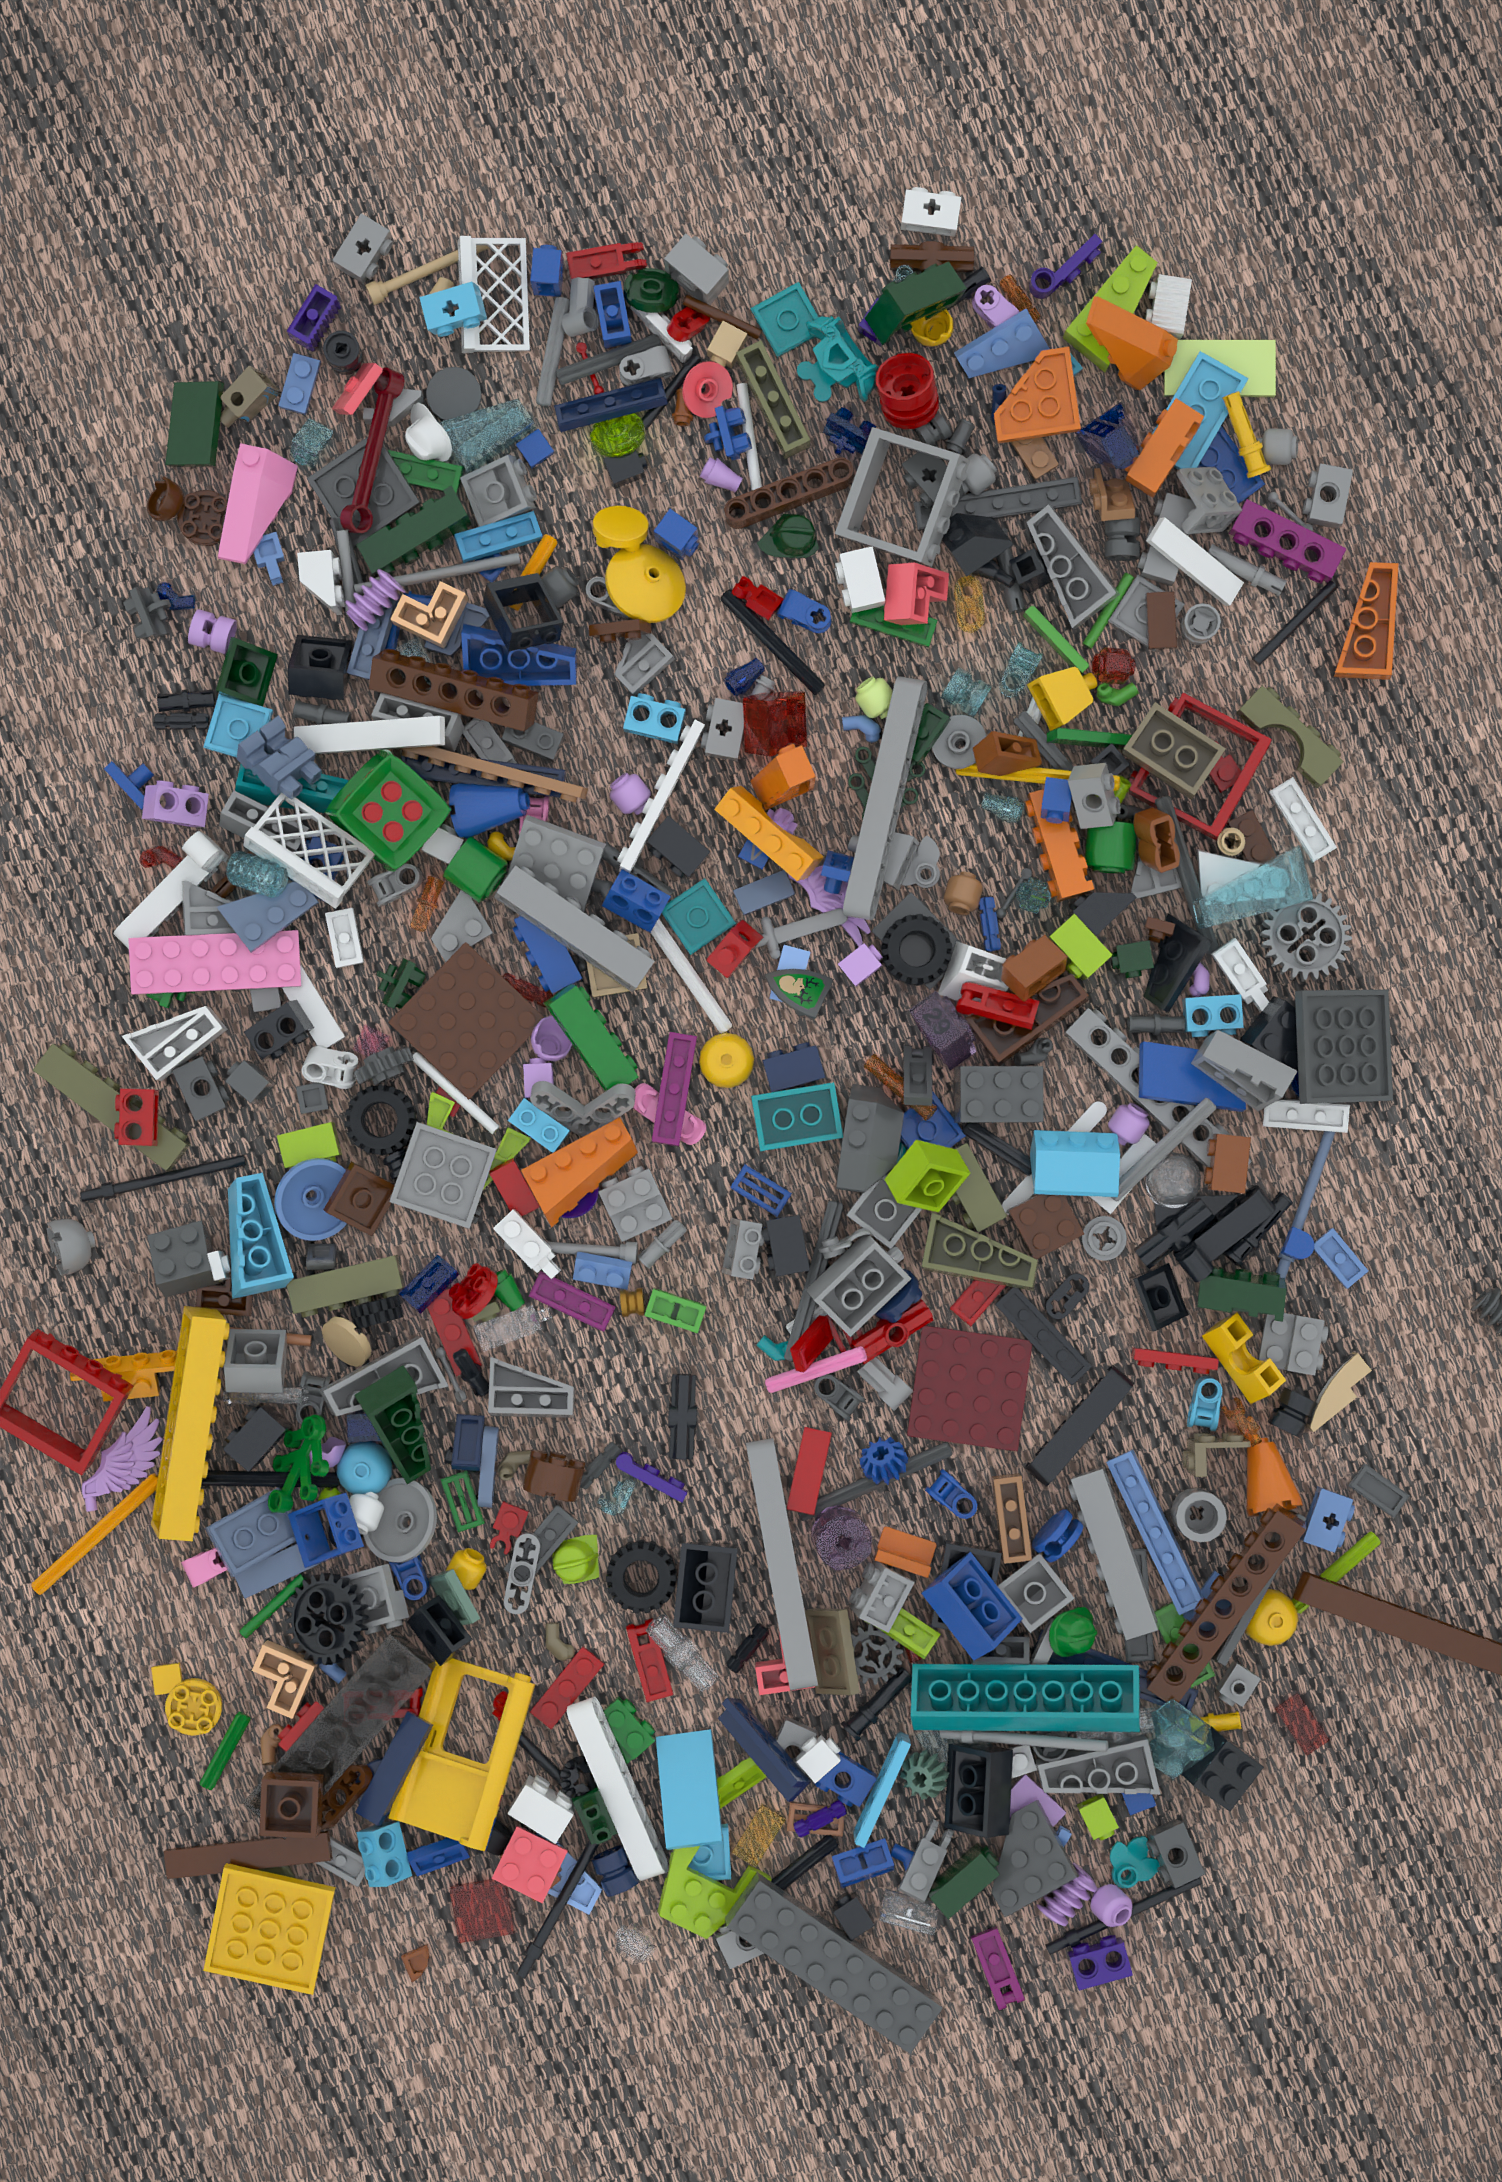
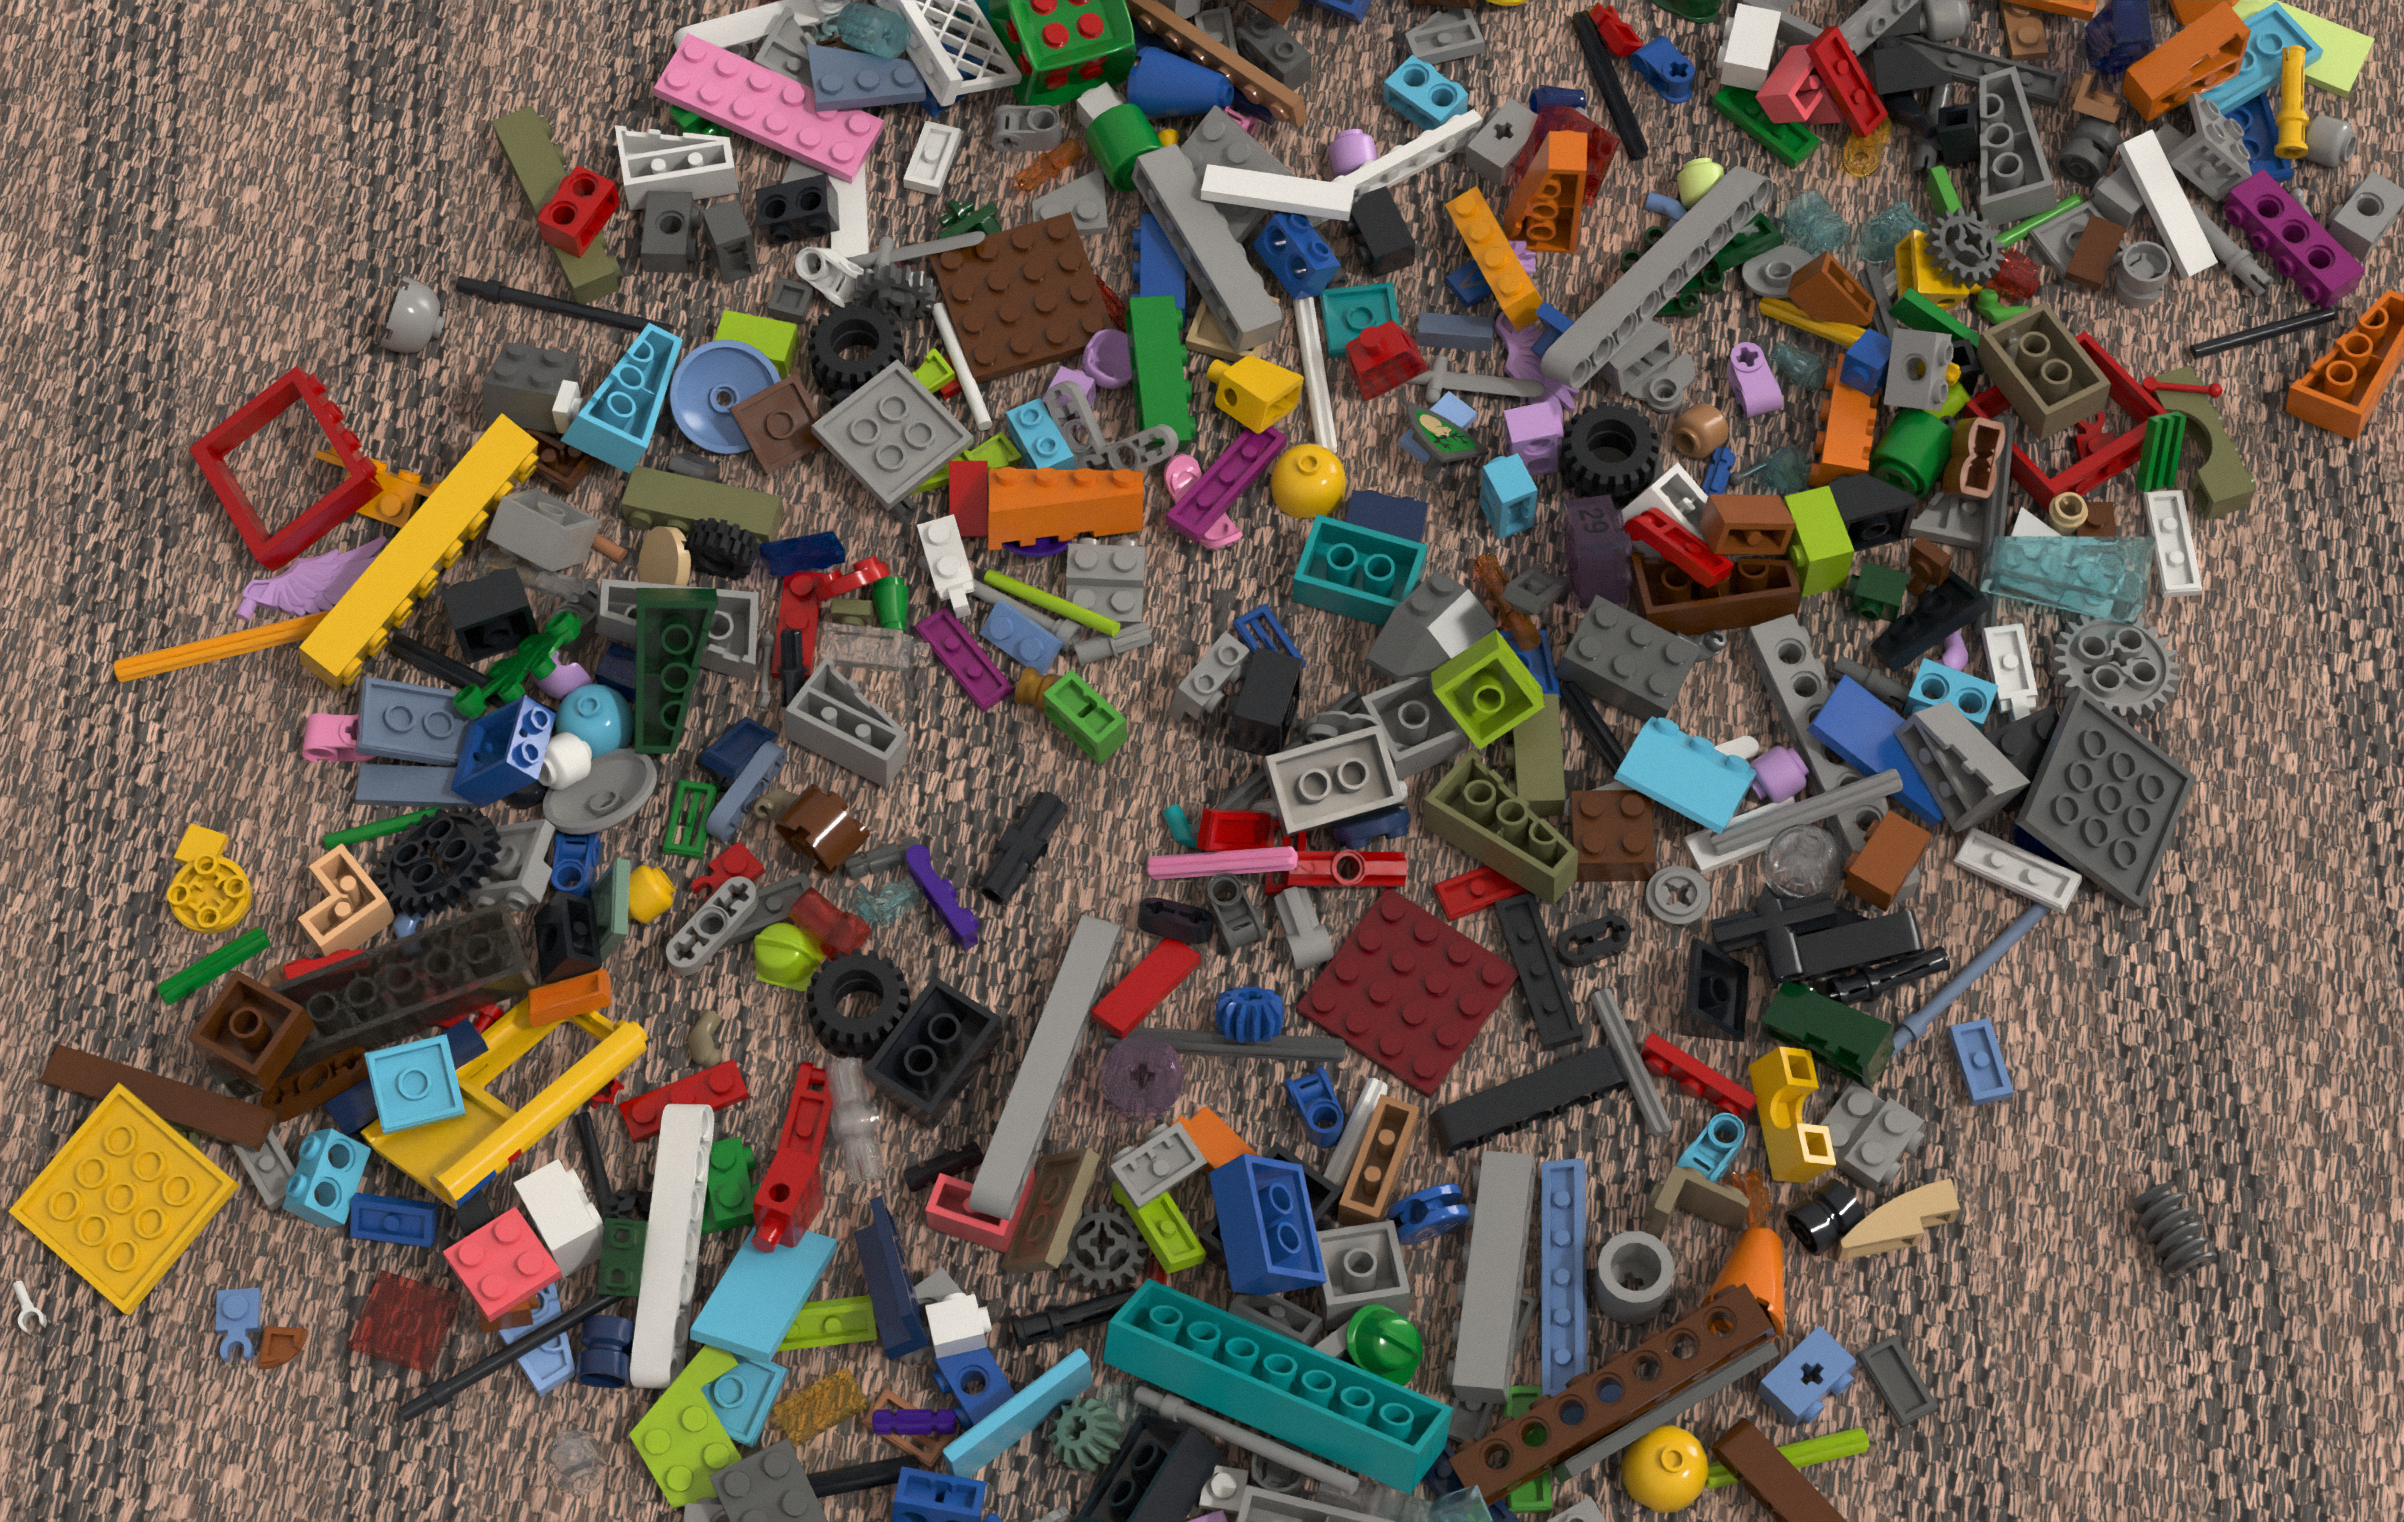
camera: 30 degrees right, 25 degrees down
(252, 2019) = (27, 1307): none -> white hand
(359, 1034) = (887, 255): none -> light grey sword
(380, 1957) = (237, 1315): none -> medium blue plate
(407, 1779) = (415, 1084): none -> medium azure plate
(463, 1667) = (569, 998): none -> orange tile
(598, 1534) = (833, 928): none -> clear red piece
(604, 870) = (1277, 192): none -> white tile
(609, 1237) = (1052, 603): none -> lime bar
(659, 1016) = (1255, 391): none -> yellow torso
(670, 1720) = (787, 1200): none -> red torso
(803, 1416) = (1175, 920): none -> black beam
(864, 1013) = (1508, 495): none -> medium azure brick
(941, 580) = (1846, 81): none -> red plate
(984, 841) = (1753, 381): none -> lavender piece
(984, 1499) = (1354, 1133): none -> white axle
(1074, 676) = (1964, 248): none -> dark grey gear
(1127, 1366) = (1631, 1062): none -> light grey axle
(1243, 715) = (2150, 384): none -> red hinge
(1271, 764) = (2163, 452): none -> green tile
(1298, 1244) = (1932, 1013): blue tile -> none

